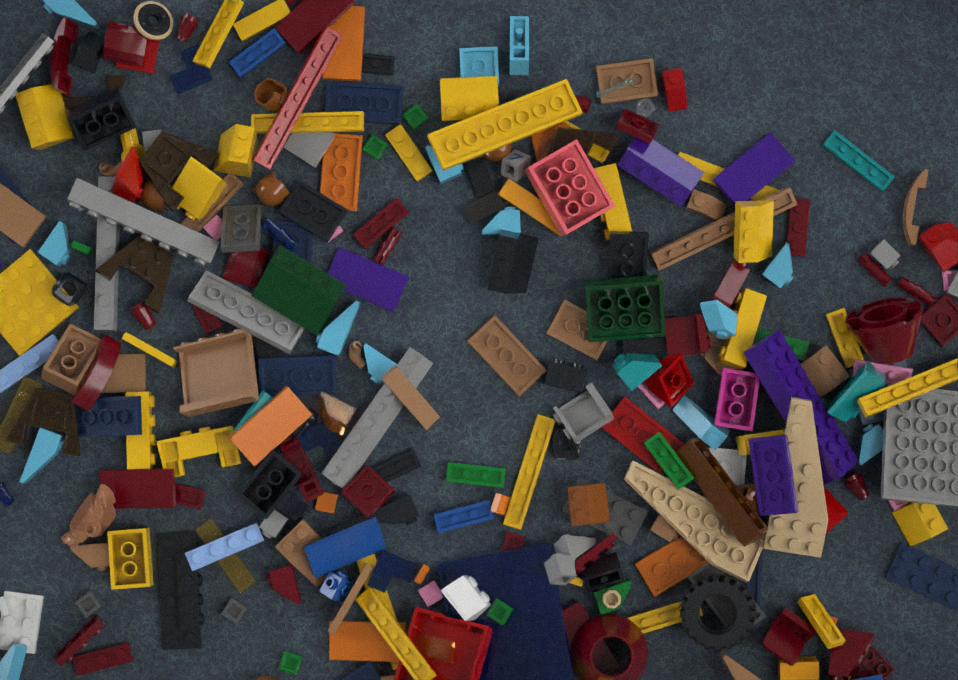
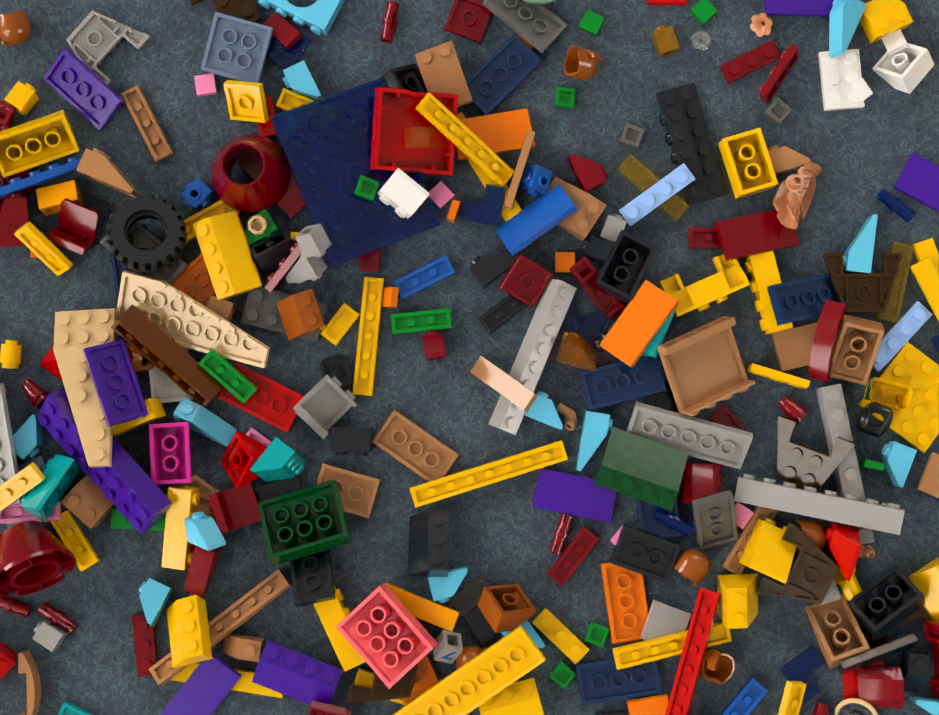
camera: 165 degrees right, 0 degrees up
(56, 307) = (906, 394): none -> yellow piece
(120, 74) = (877, 654): none -> tile
(151, 101) = (836, 631): none -> medium nougat slope
(443, 317) = (488, 473): none -> yellow plate
(454, 190) = (505, 607): none -> dark orange slope
(468, 448) = (434, 346): none -> dark red slope
(553, 489) = (340, 324): none -> yellow tile
(646, 576) = (227, 255): none -> yellow slope
(657, 642) = (196, 188): none -> blue brick
(873, 527) = (10, 354): none -> yellow brick

